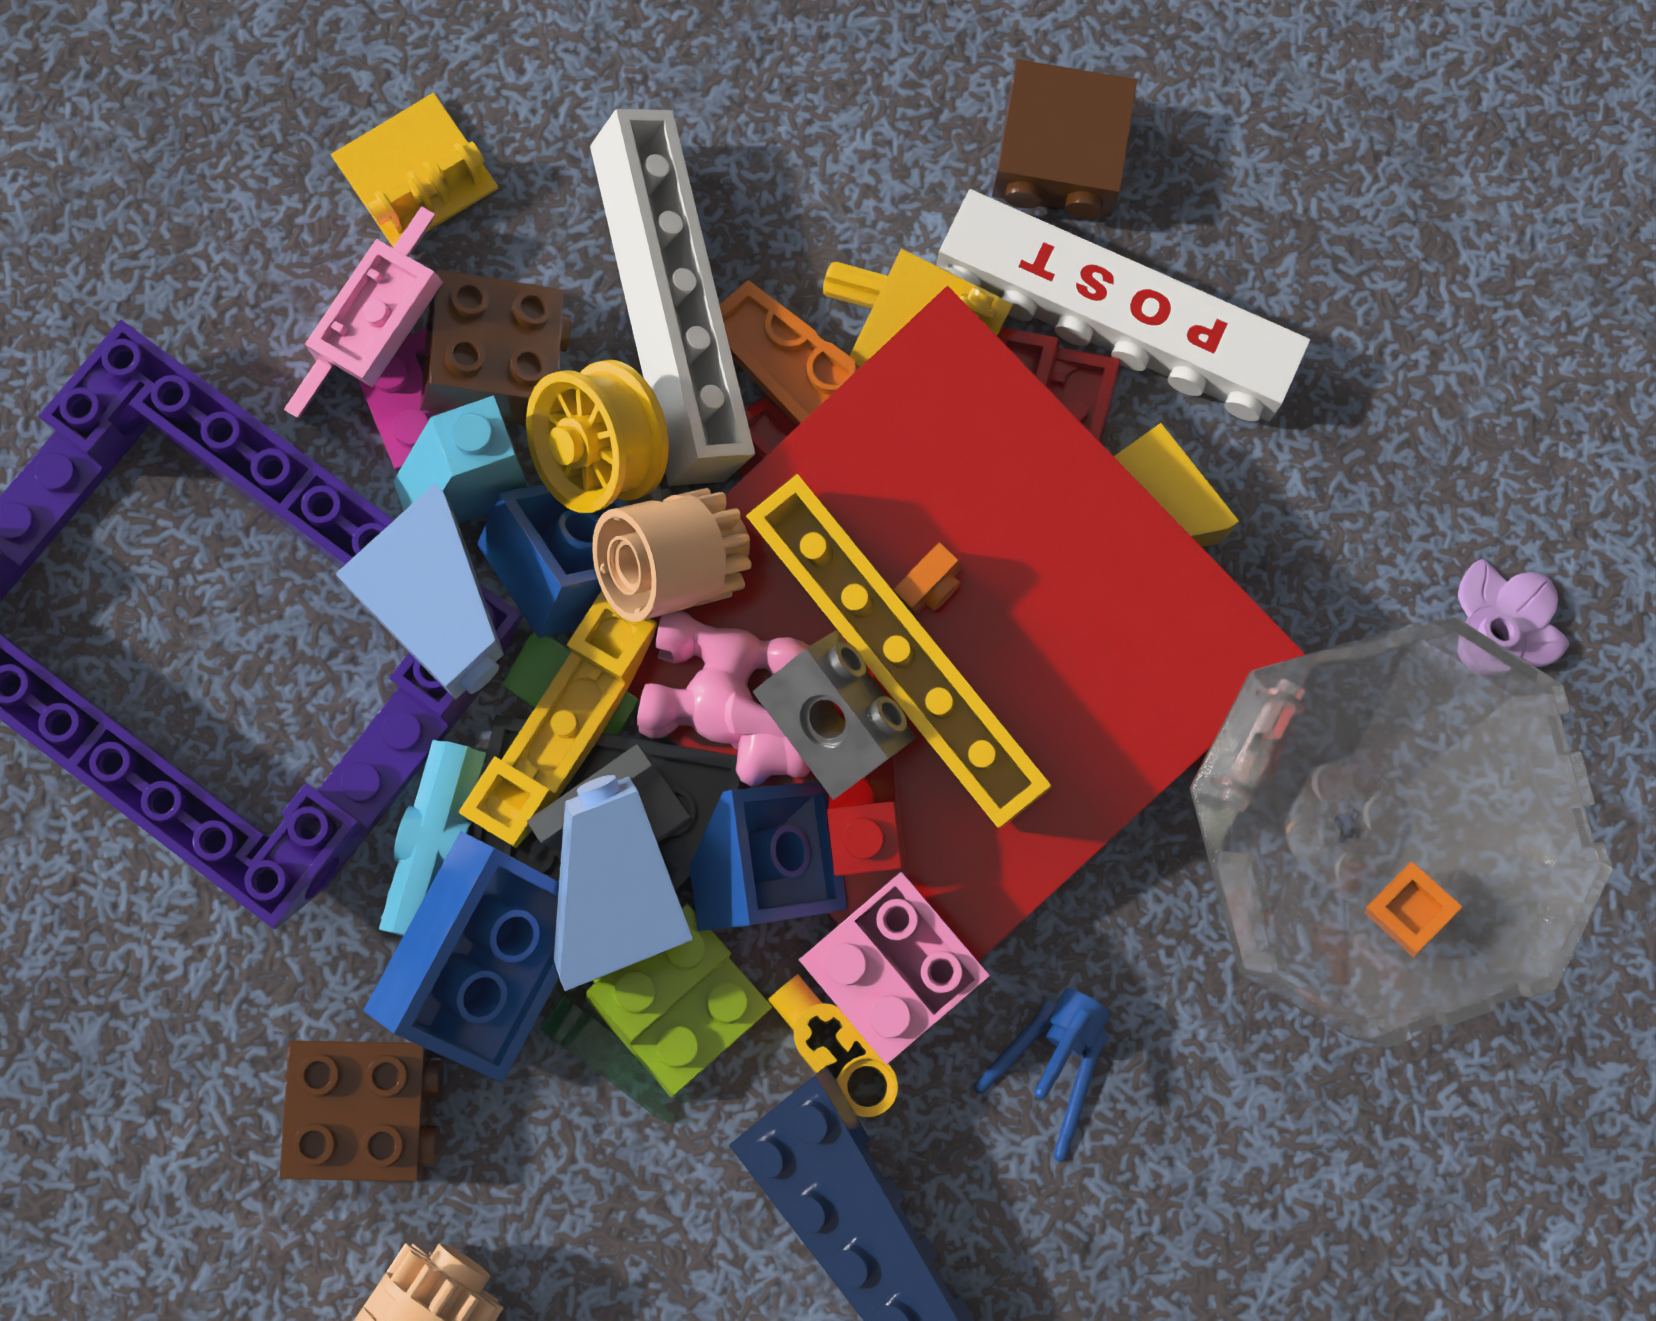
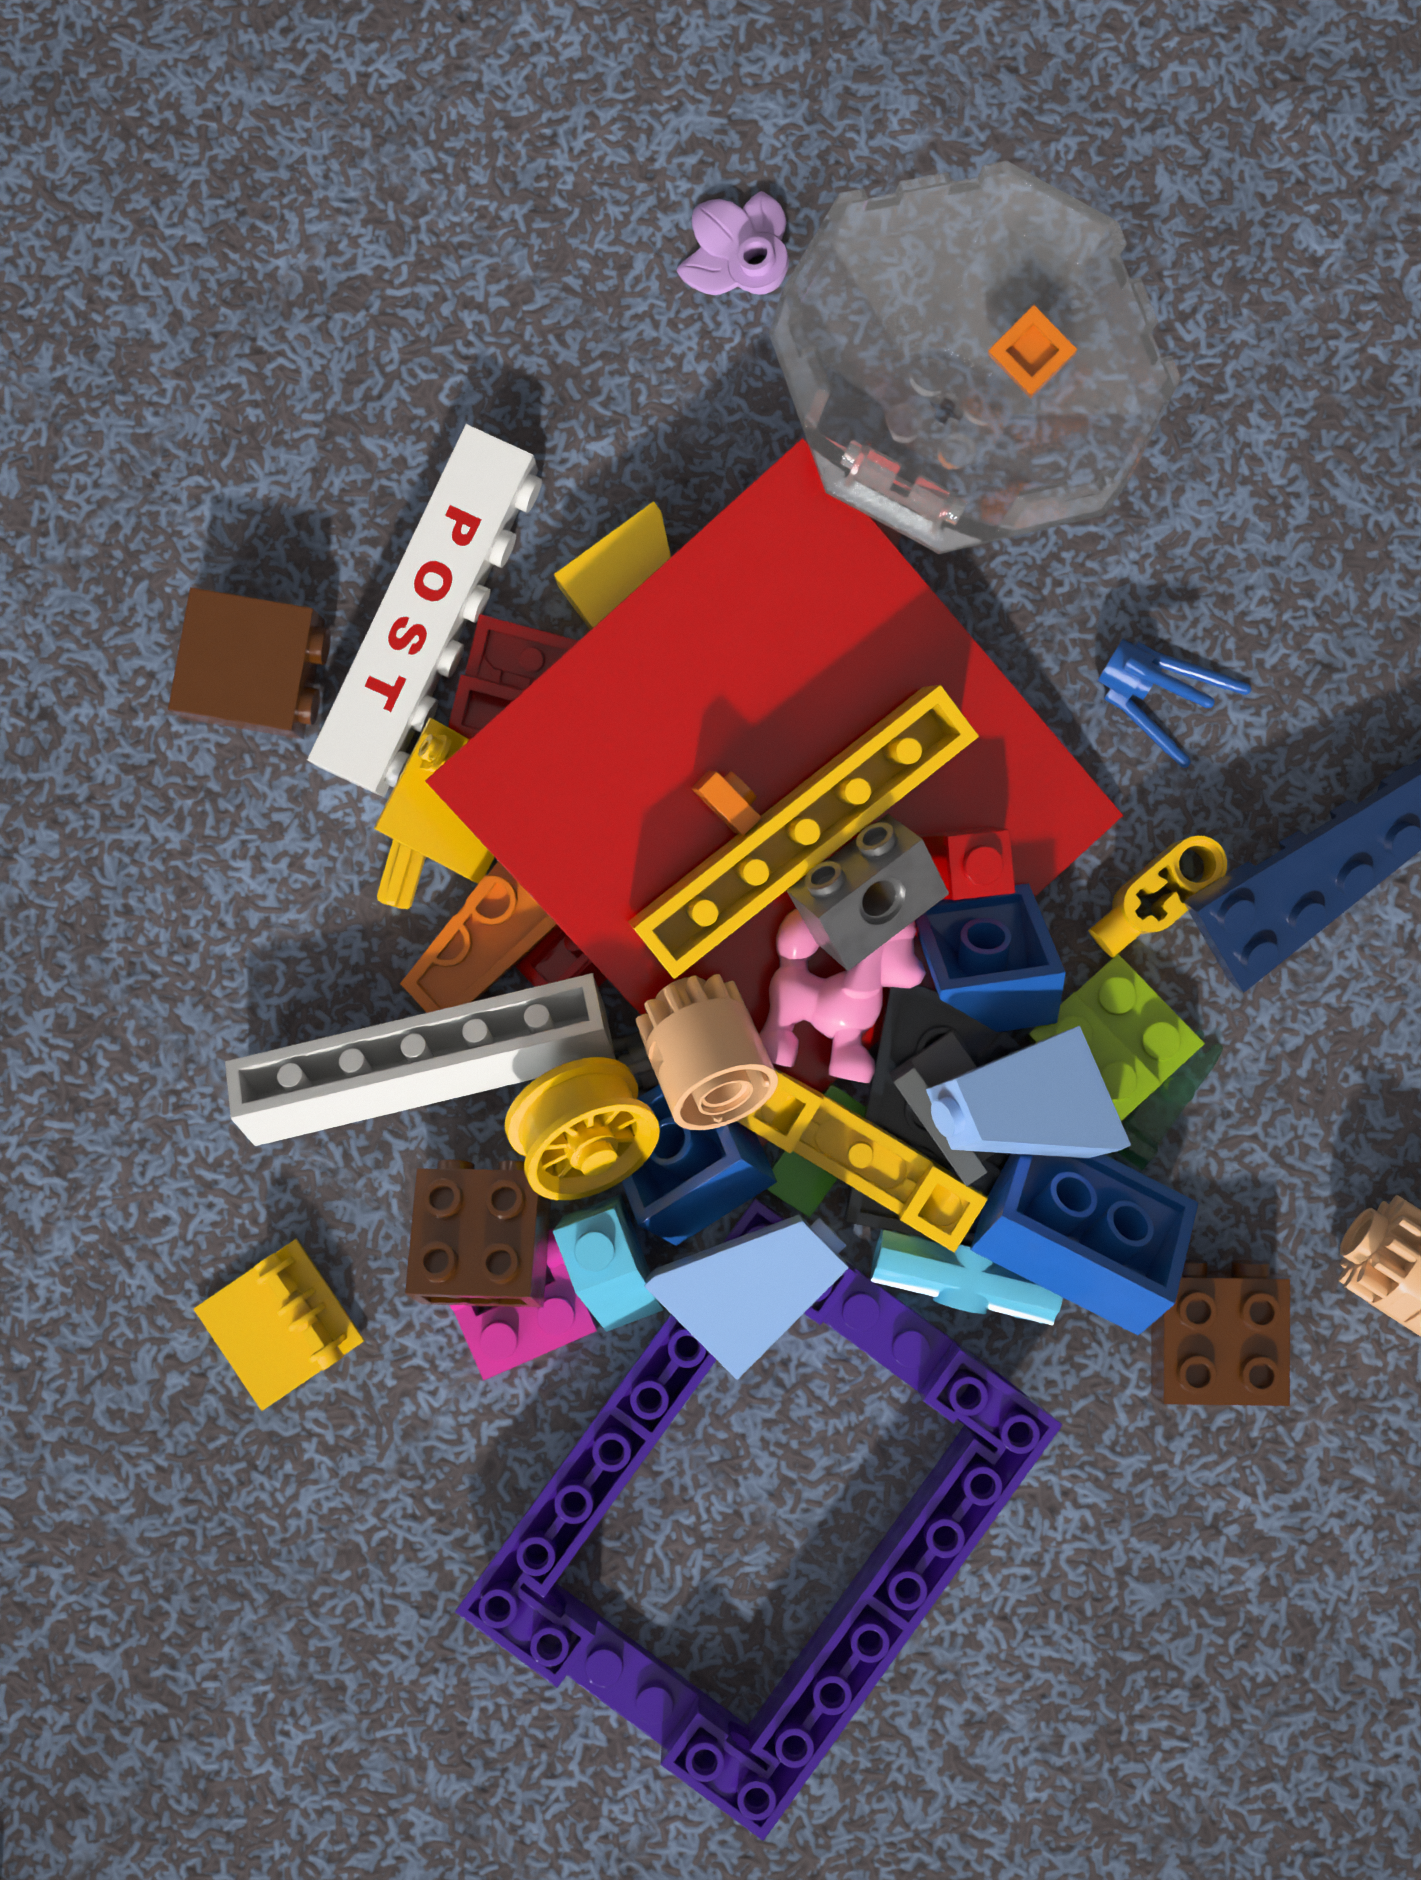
camera: 85 degrees left, 10 degrees up
(371, 314) = (451, 1358): bright pink plate -> none
(894, 968) = (1095, 840): bright pink slope -> none

